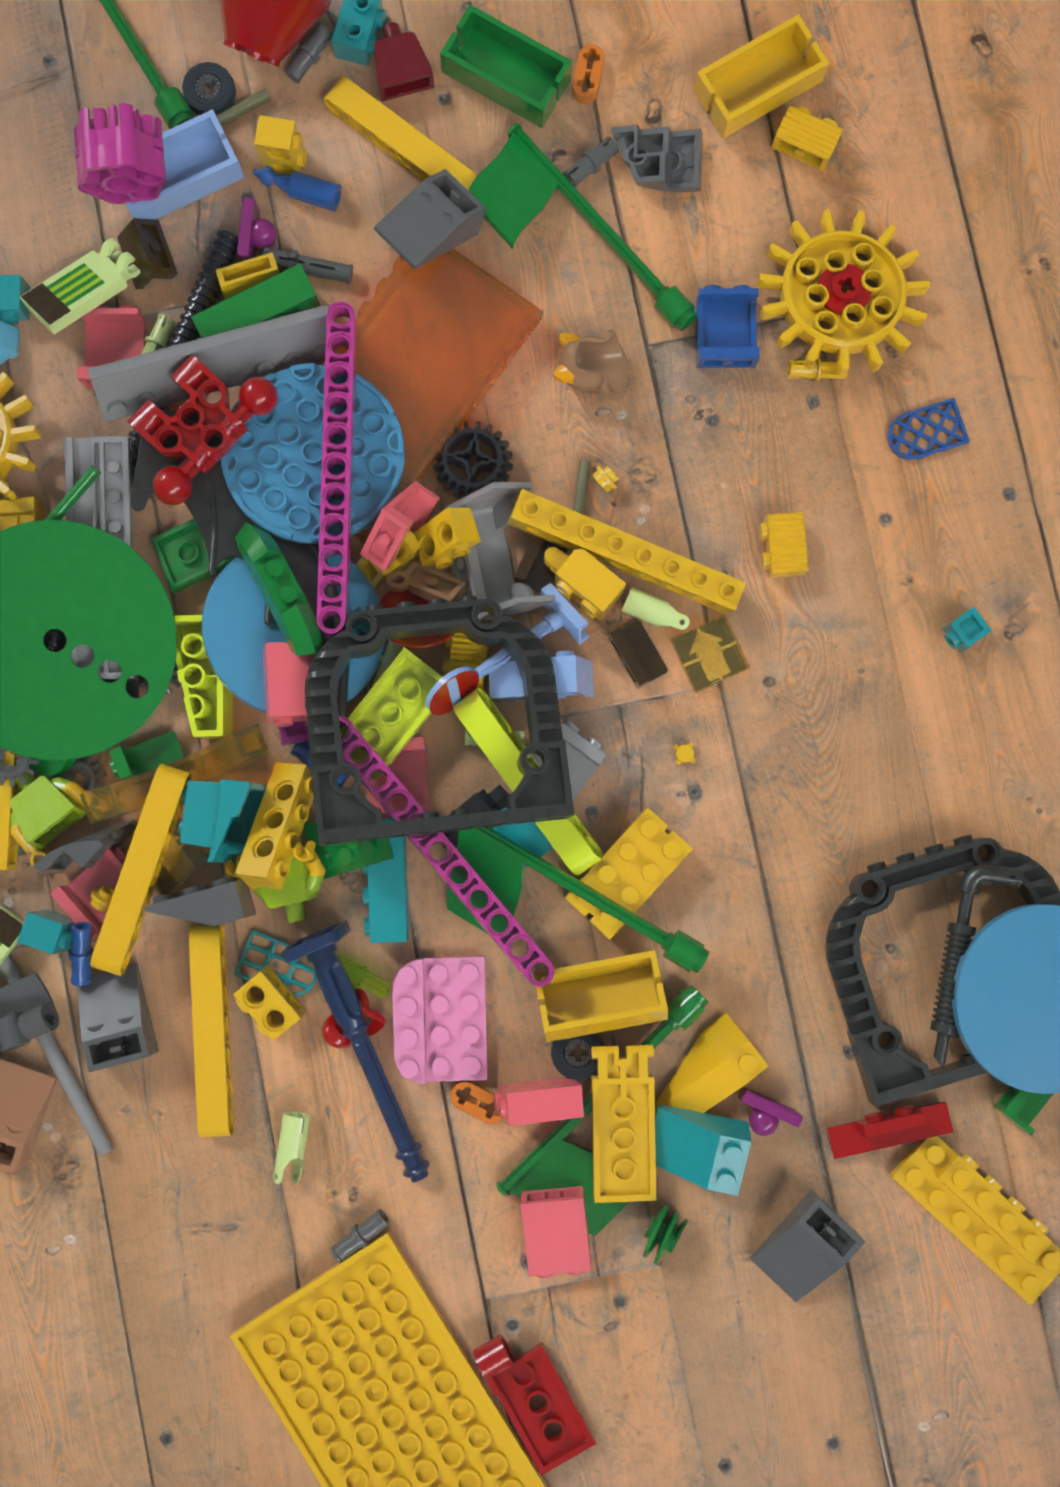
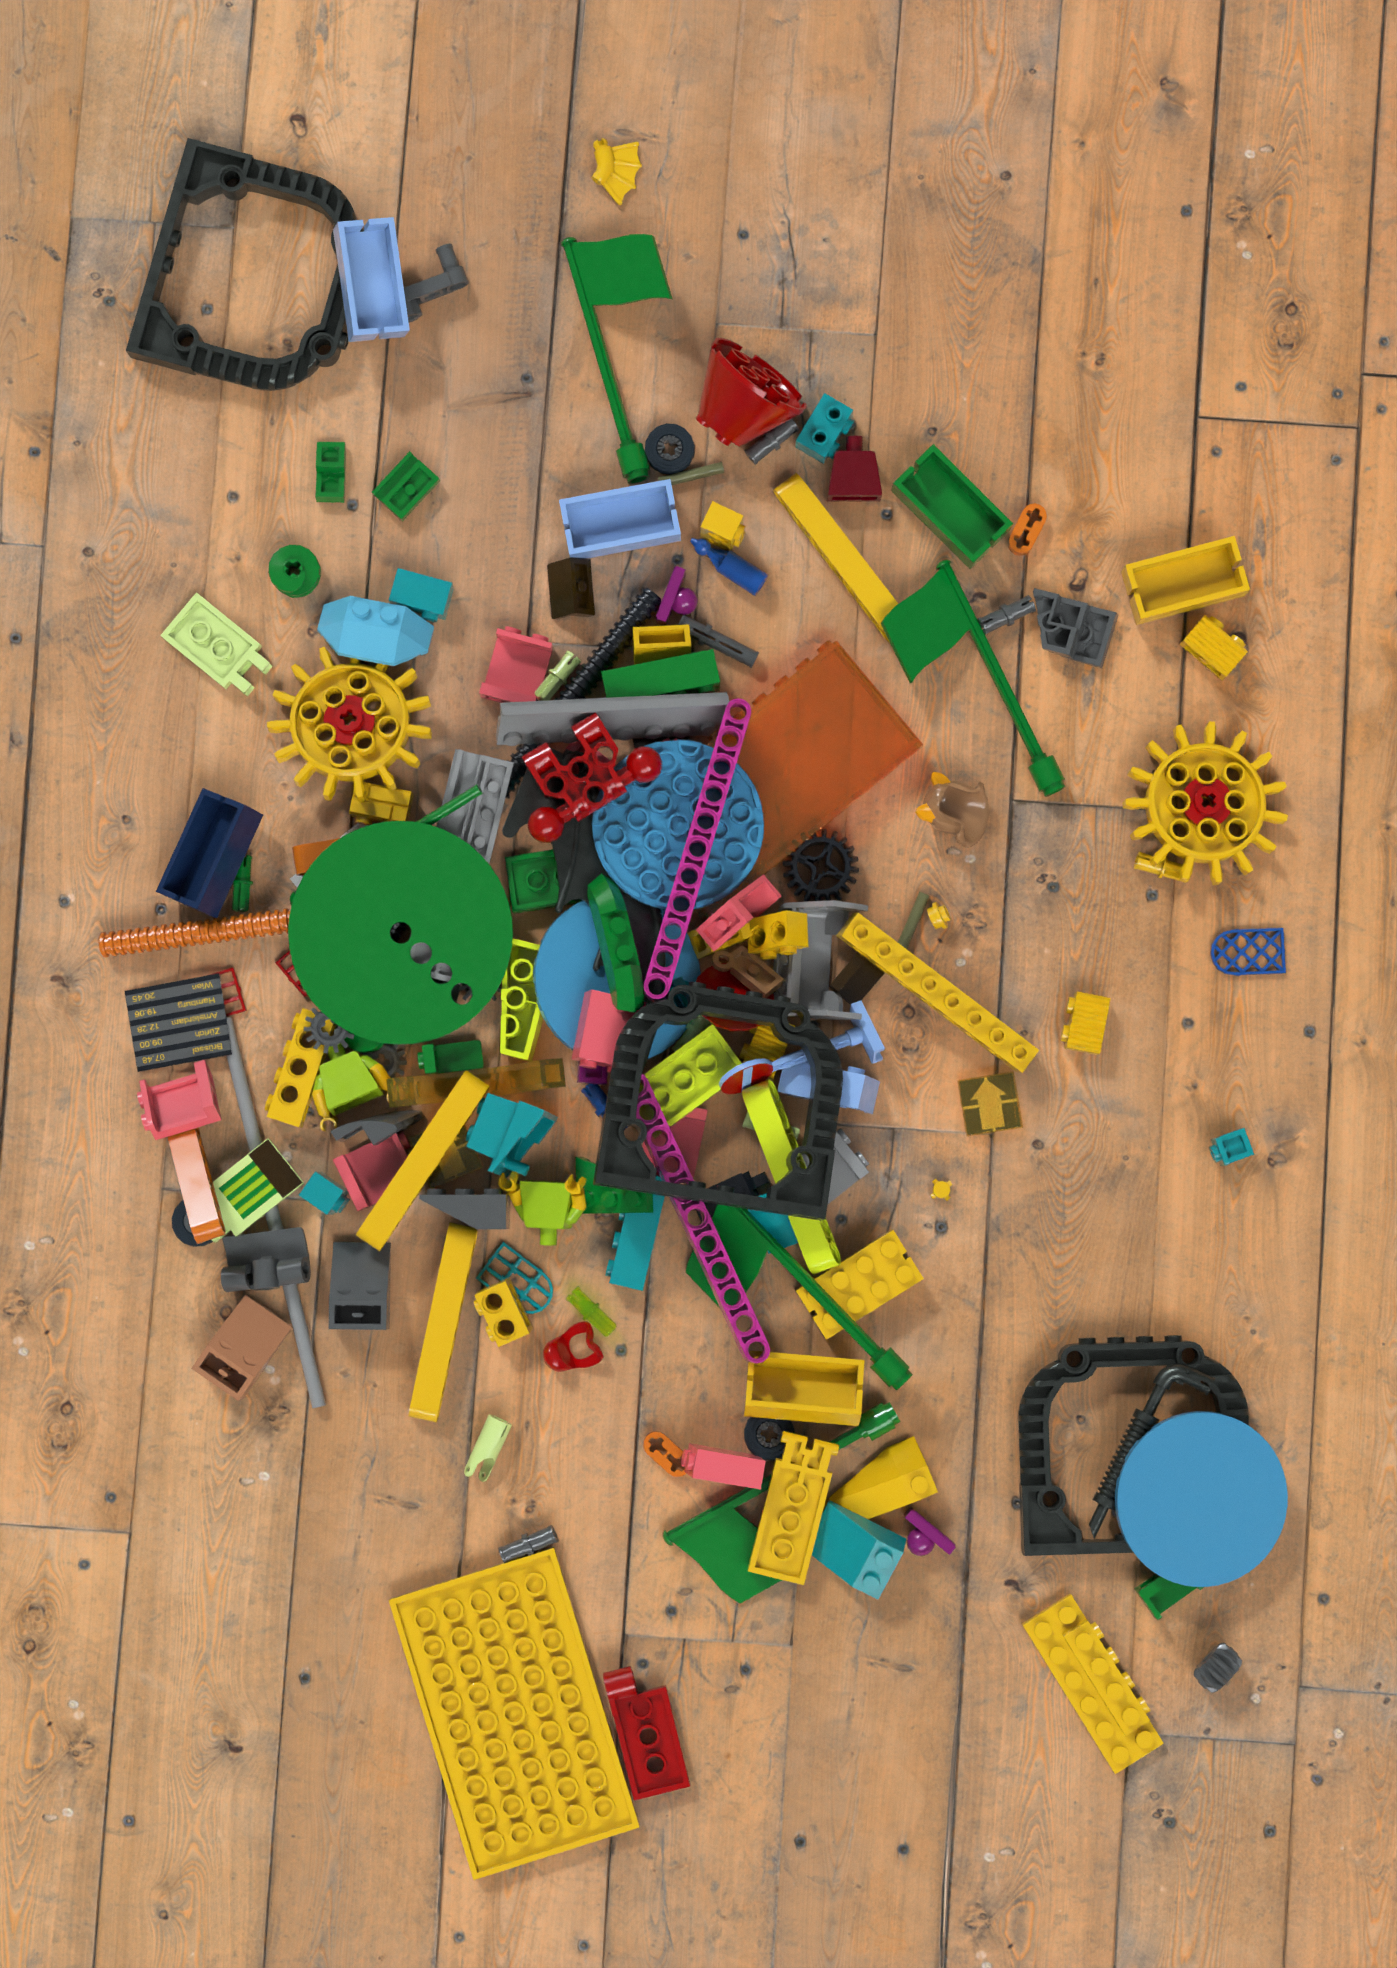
camera: 15 degrees right, 0 degrees up
(80, 287) = (504, 608): tile -> none
(81, 954) = (347, 1221): blue pin -> none
(101, 898) = (378, 1177): yellow plate -> none
(121, 160) = (578, 515): dark pink piece -> none
(277, 826) = (556, 1140): yellow brick -> none
(347, 1011) = (572, 1338): dark blue piece -> none
(432, 220) = (843, 638): dark grey slope -> none
(441, 1019) = (653, 1370): bright pink plate -> none
(555, 1231) = (706, 1588): coral brick -> none
(585, 581) = (892, 1007): yellow hinge -> none
(638, 654) = (924, 1086): dark brown panel -> none
(653, 610) = (949, 1050): yellowish green piece -> none
(663, 1234) = (800, 1617): green piece -> none
(726, 327) = (1089, 805): blue panel -> none
(807, 1247) = (927, 1665): dark grey slope -> none
(888, 1130) = (1032, 1582): red bracket -> none

